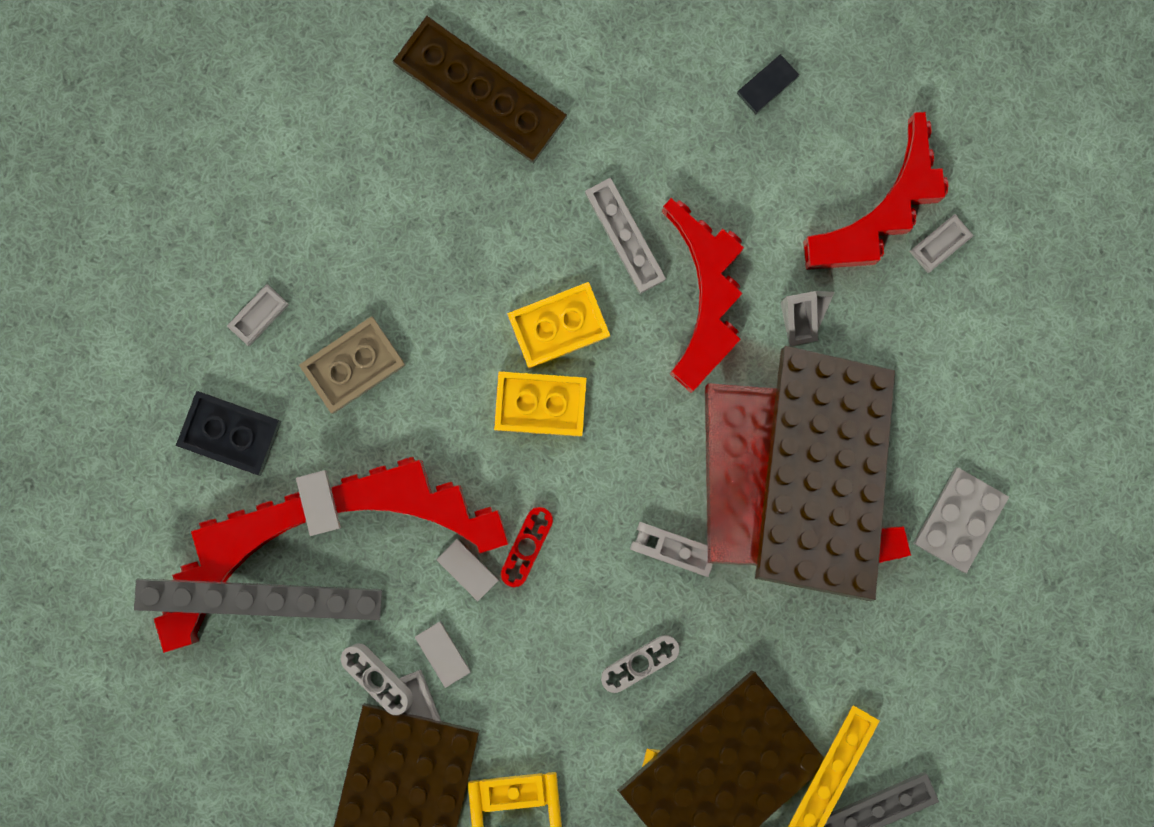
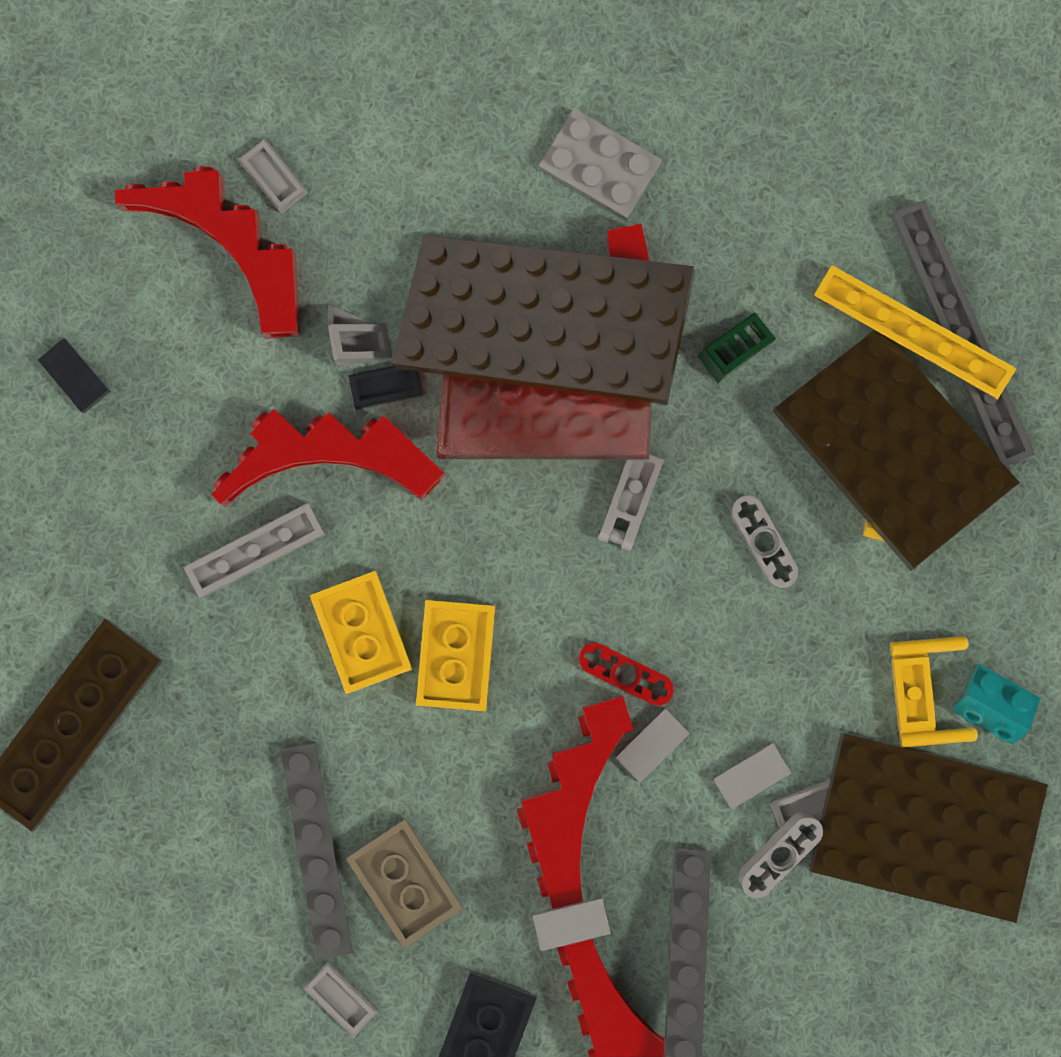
camera: 85 degrees left, 0 degrees up
(378, 292) = (316, 851): none -> dark grey plate
(765, 340) = (384, 386): none -> black tile
(789, 621) = (715, 365): none -> dark green slope

